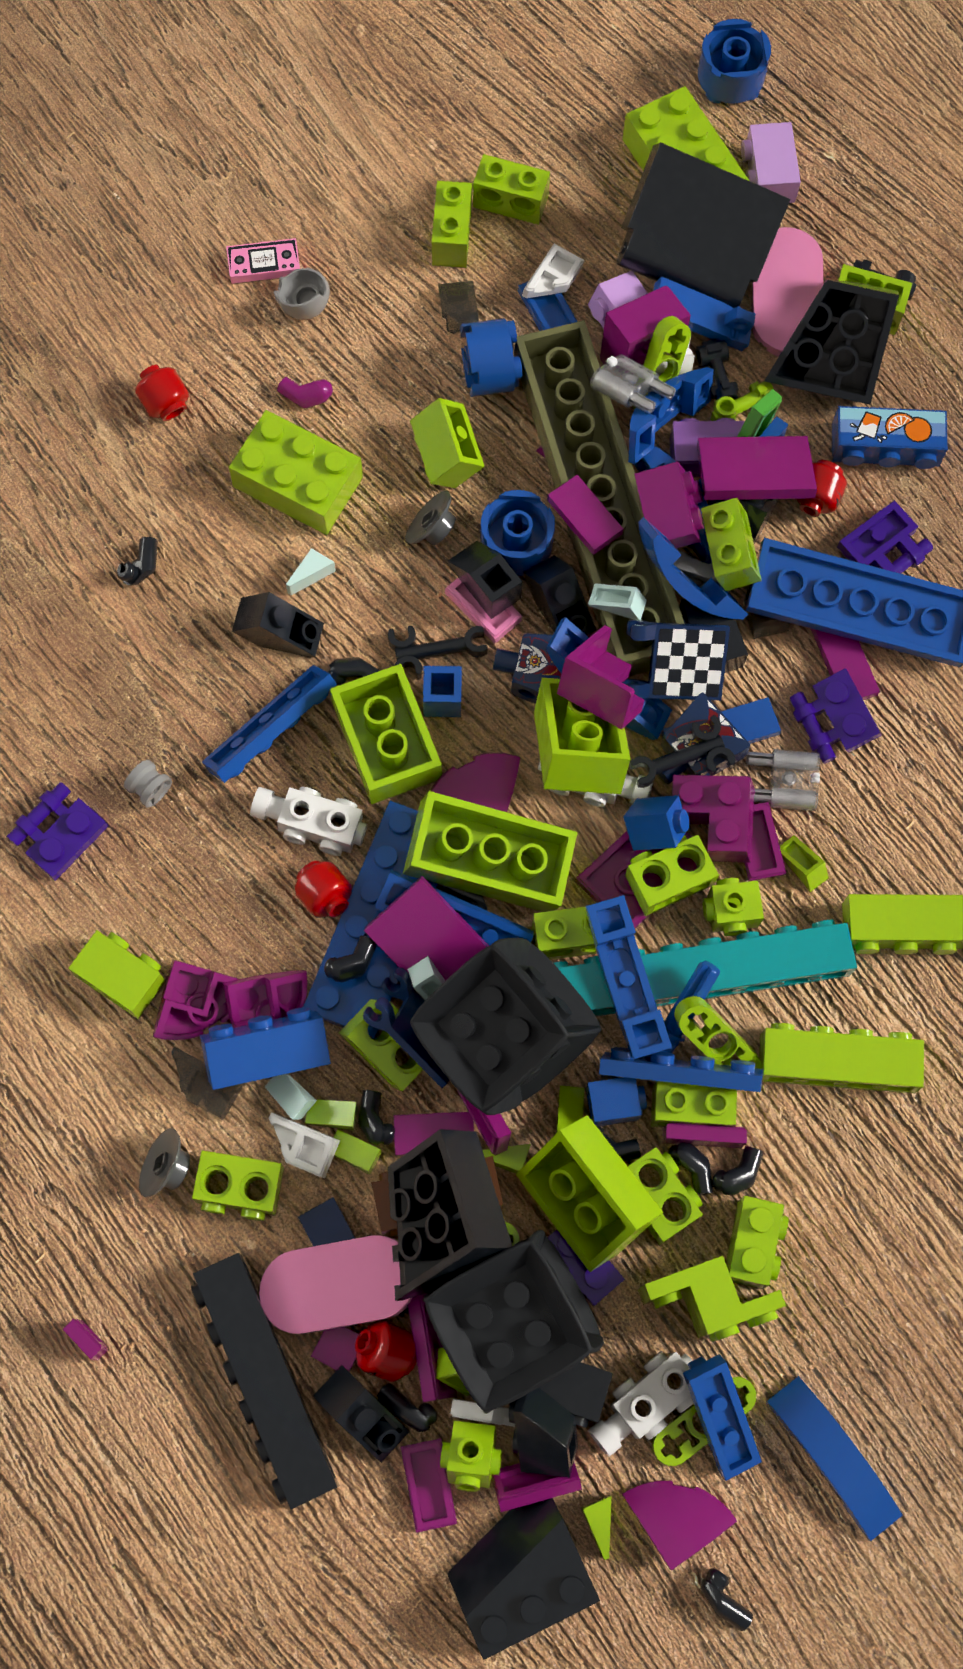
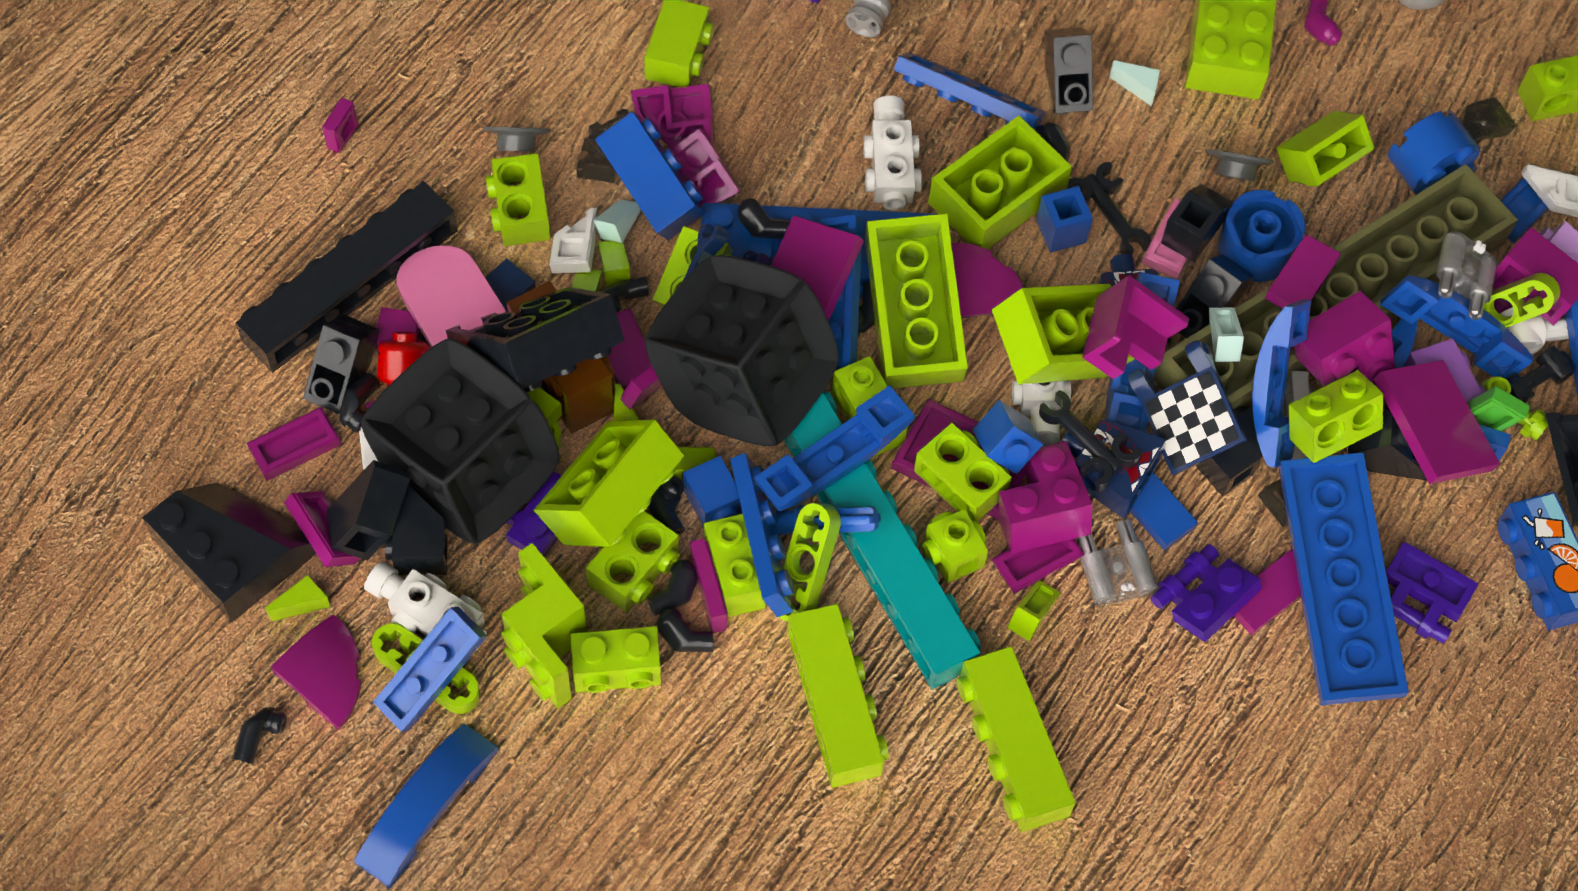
camera: 70 degrees right, 10 degrees down
(323, 889) = (825, 182): red head -> none
(471, 1456) = (328, 461): lime brick -> none
(830, 489) = (1454, 506): red head -> none

